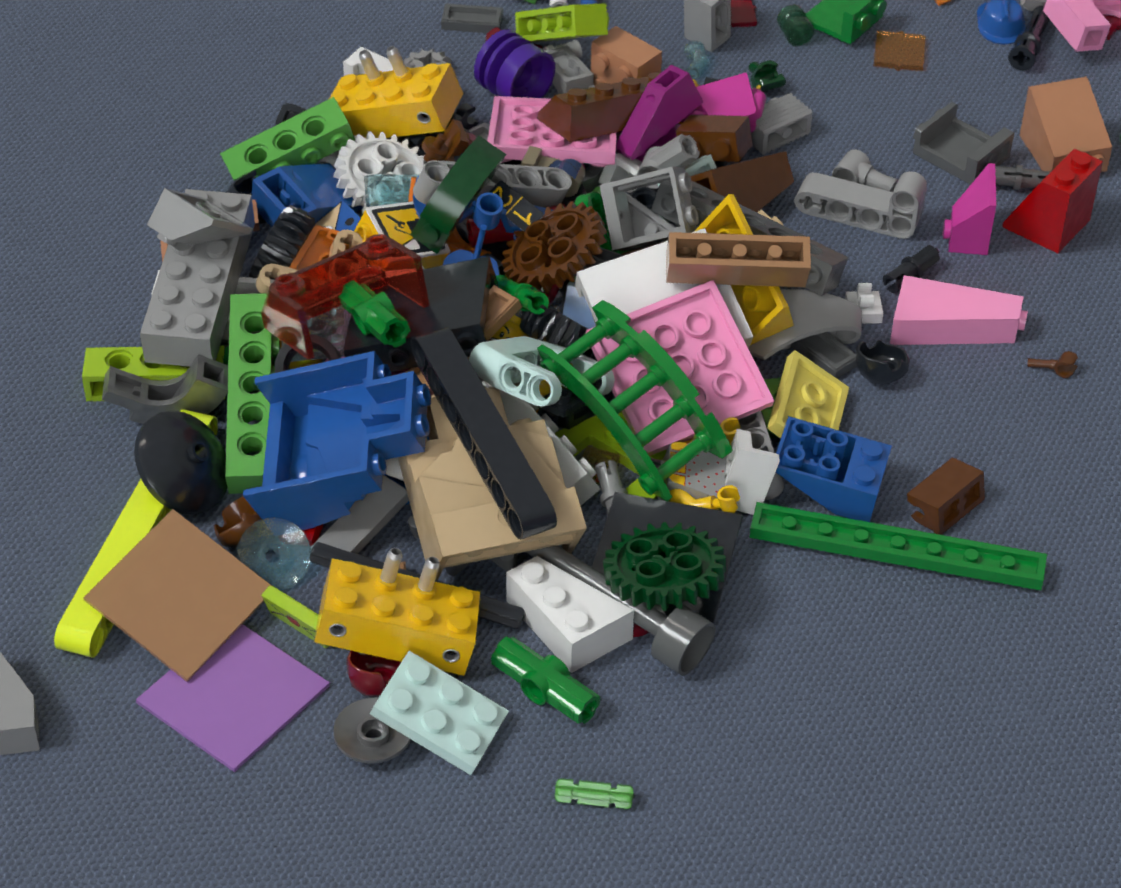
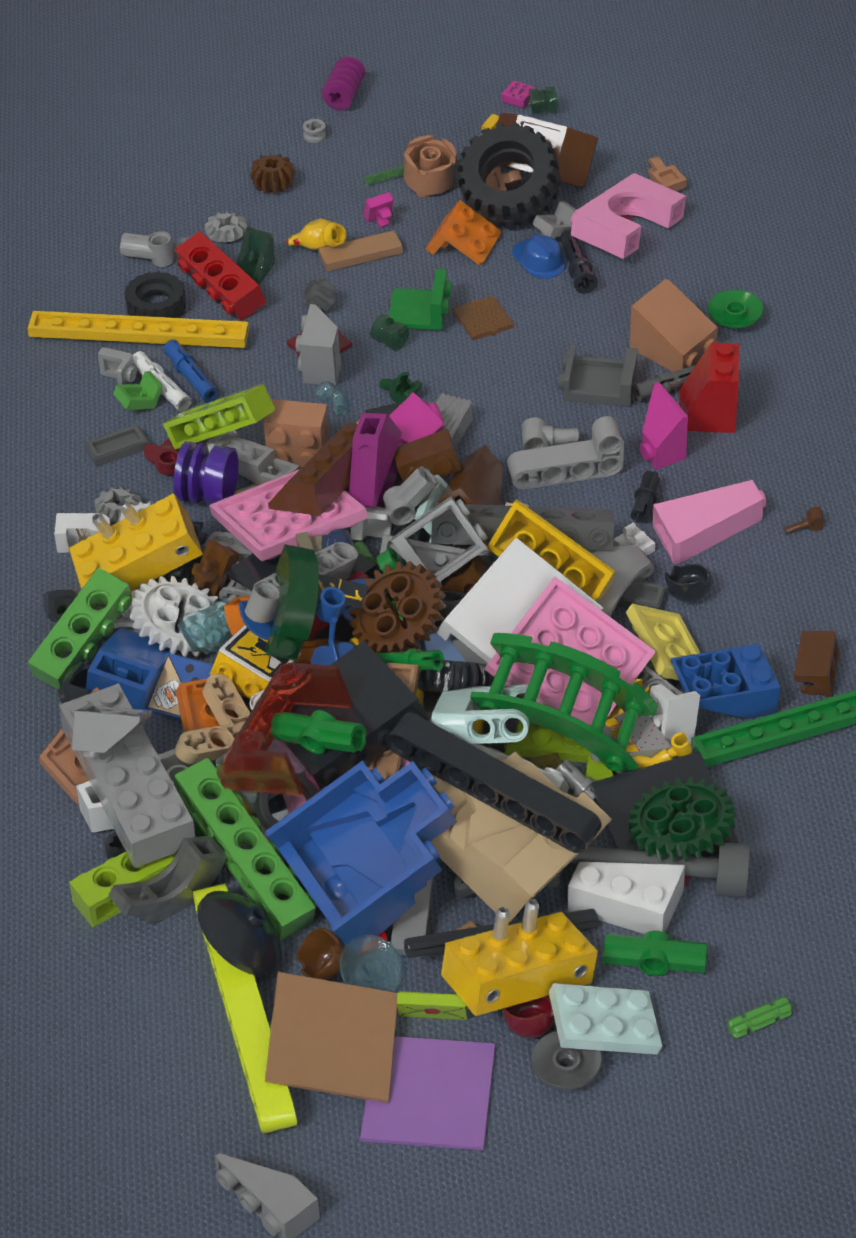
camera: 30 degrees left, 0 degrees up
(284, 239) = (169, 709): black gear -> none
(738, 259) = (565, 551): medium nougat brick -> none

